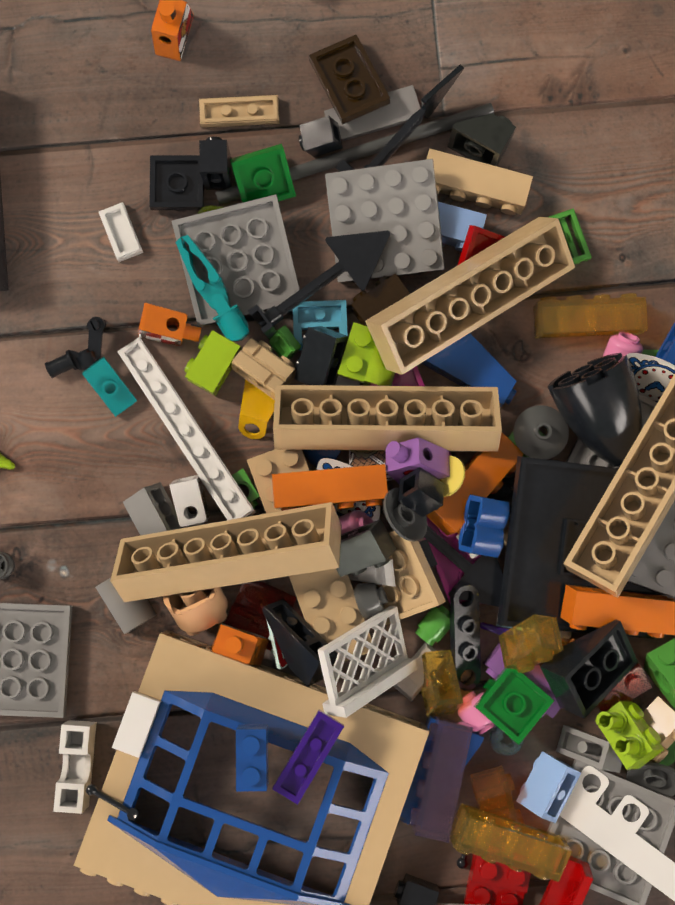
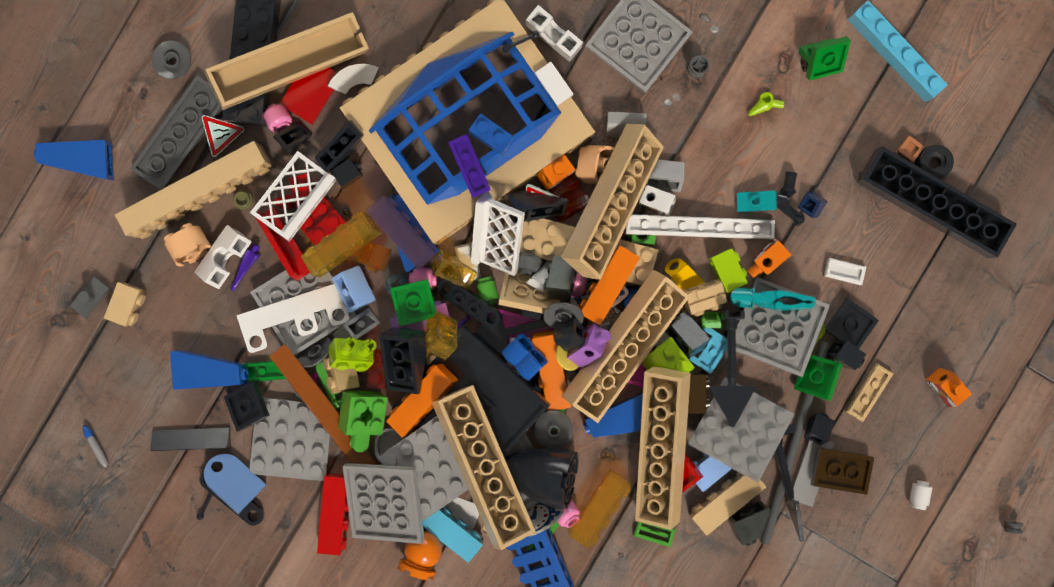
camera: 130 degrees right, 5 degrees up
(68, 321) = (812, 204): none -> dark blue slope

